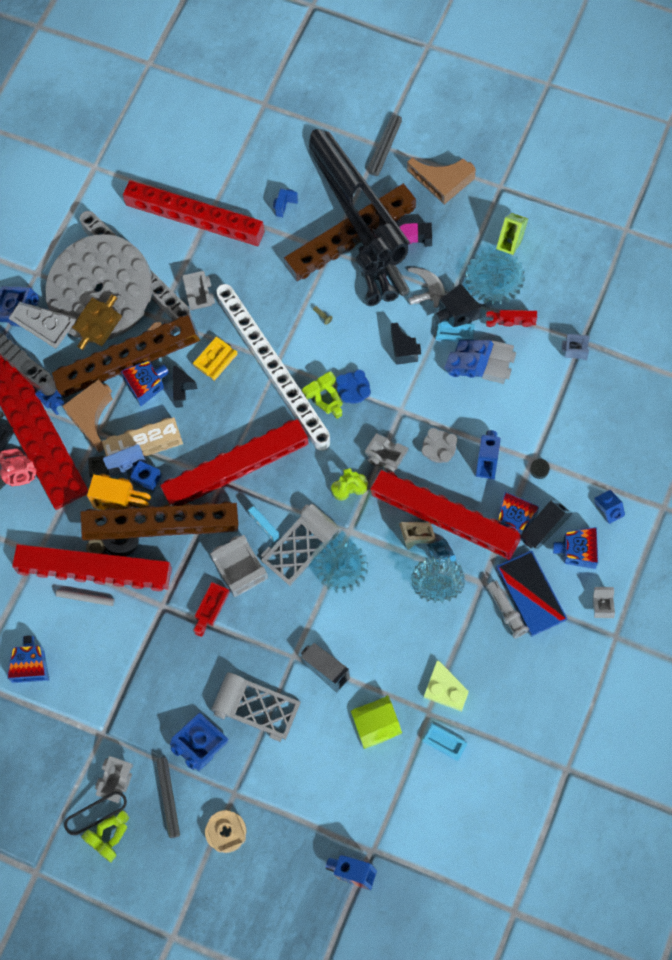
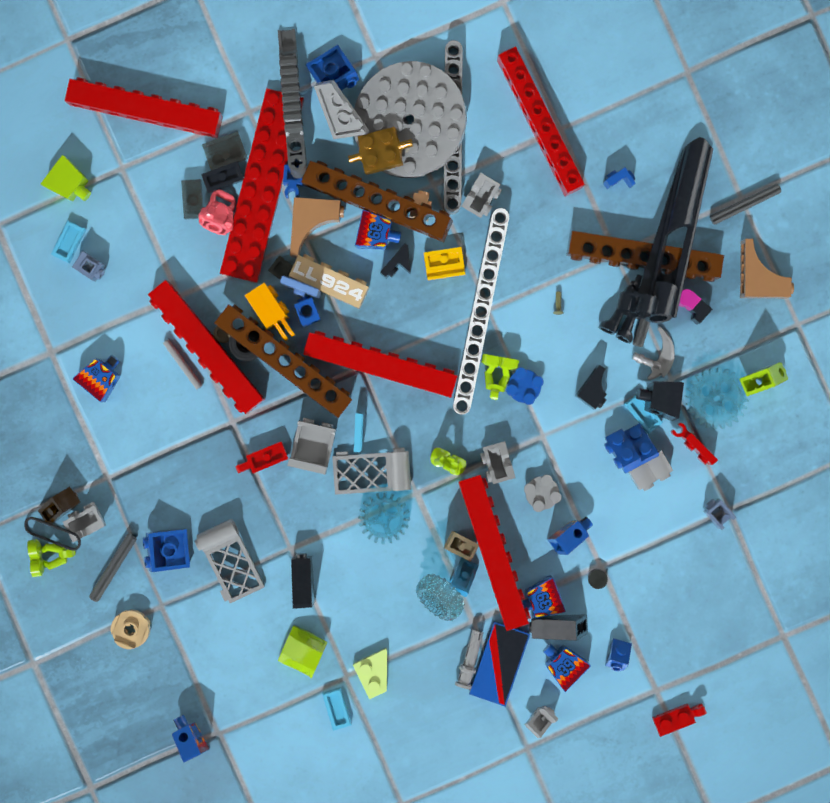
camera: 40 degrees right, 20 degrees up
(81, 787) = (59, 505): none -> dark brown slope

